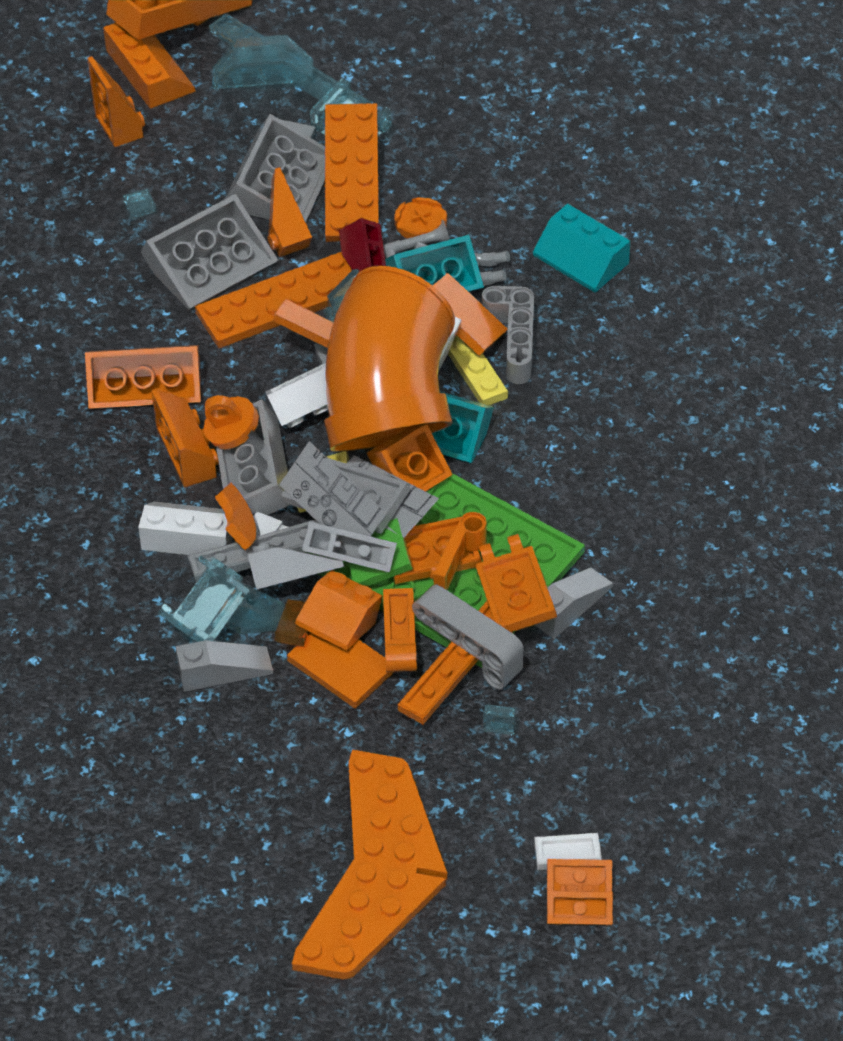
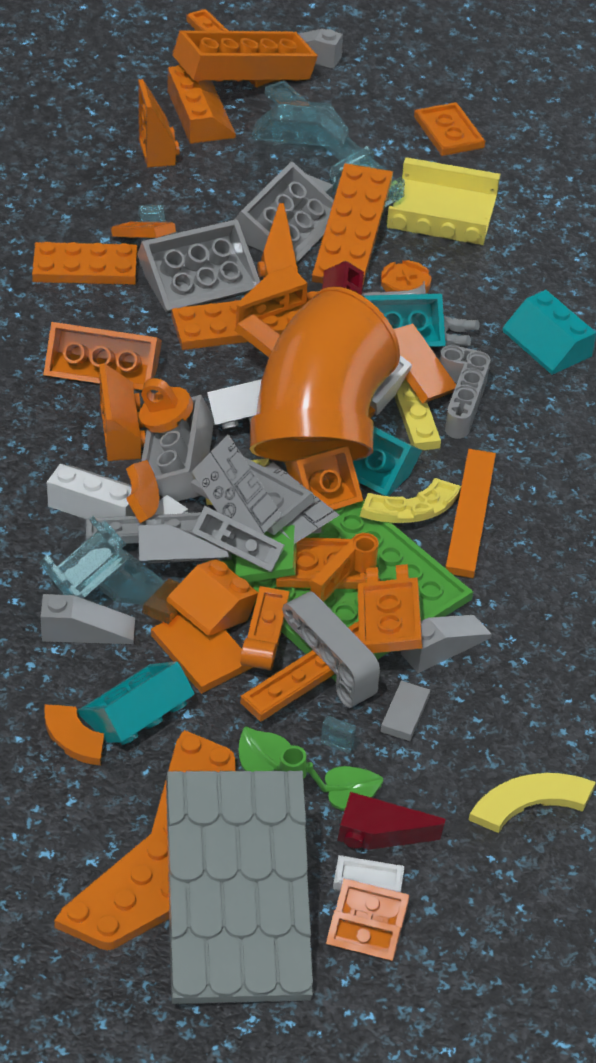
camera: 10 degrees right, 5 degrees down
(88, 273) = (84, 263): none -> orange plate
(139, 224) = (143, 229): none -> orange tile
(246, 780) = (72, 735): none -> orange tile
(298, 268) = (273, 294): none -> orange slope
(299, 732) = (138, 702): none -> teal slope
(414, 33) = (449, 129): none -> orange tile
(435, 121) = (445, 201): none -> light yellow panel
(438, 753) = (272, 752): none -> bright green plant
(457, 891) = (238, 887): none -> light grey piece
(493, 475) = (427, 504): none -> light yellow tile
(554, 680) = (405, 711): none -> light grey tile
(558, 461) = (470, 513): none -> orange tile
(564, 798) = (380, 824): none -> dark red slope
(691, 731) = (524, 791): none -> light yellow tile

